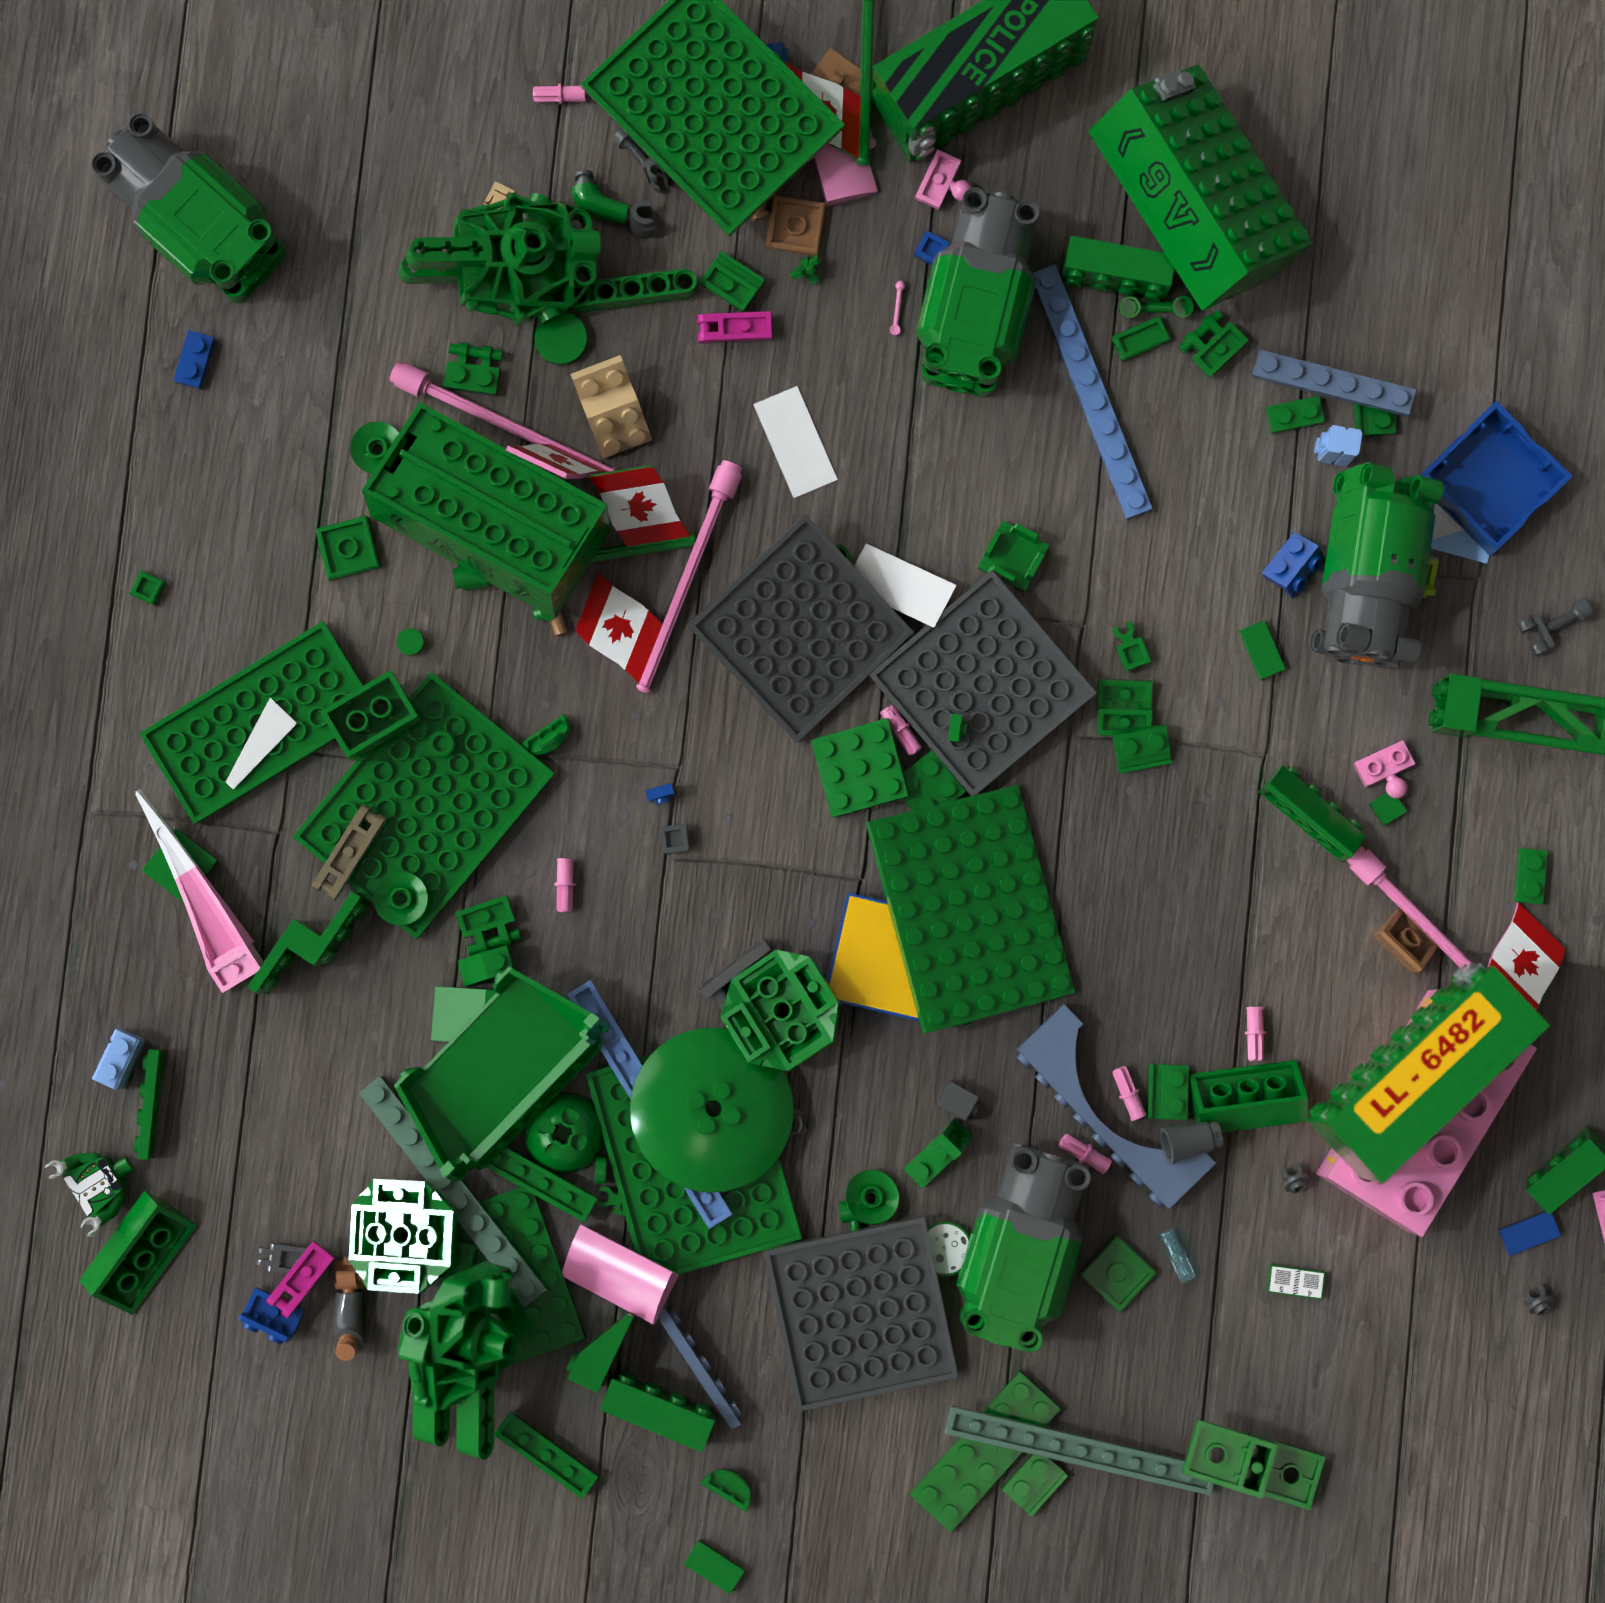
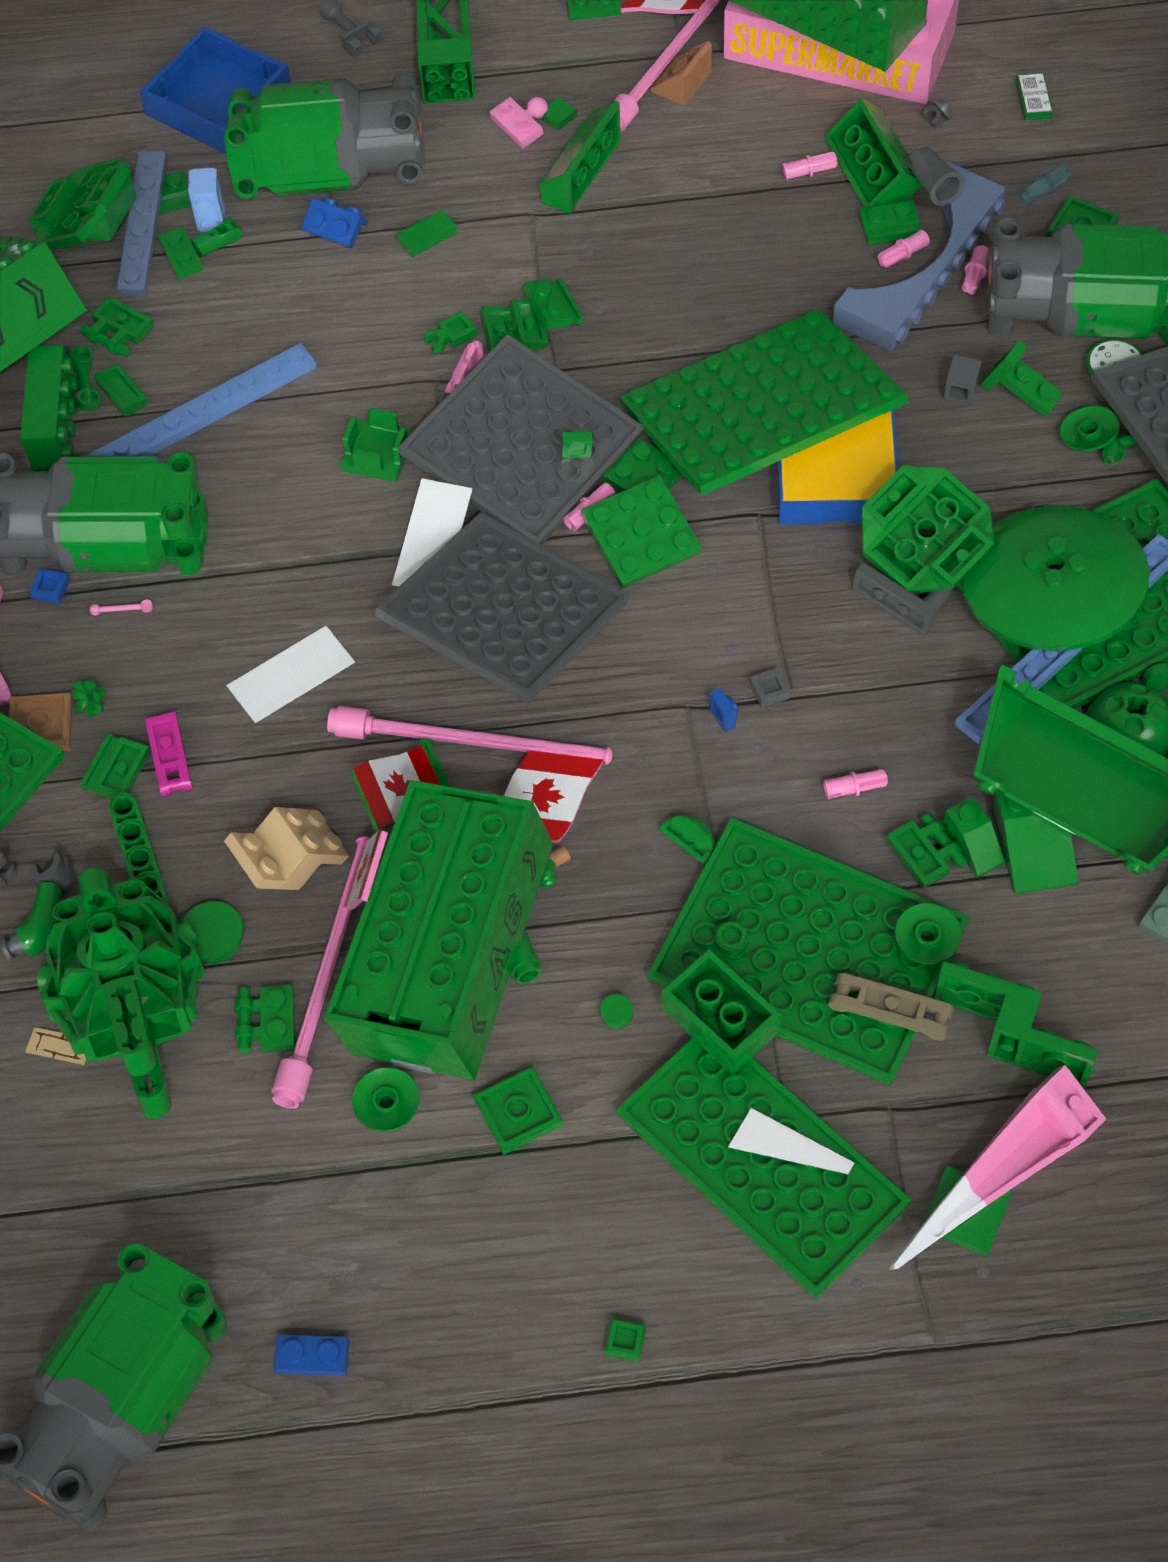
camera: 100 degrees left, 25 degrees down
(1082, 654) = (470, 358): none -> bright pink hinge
(1301, 447) = (217, 237): none -> green bar
(1355, 327) = (84, 205): none -> green piece

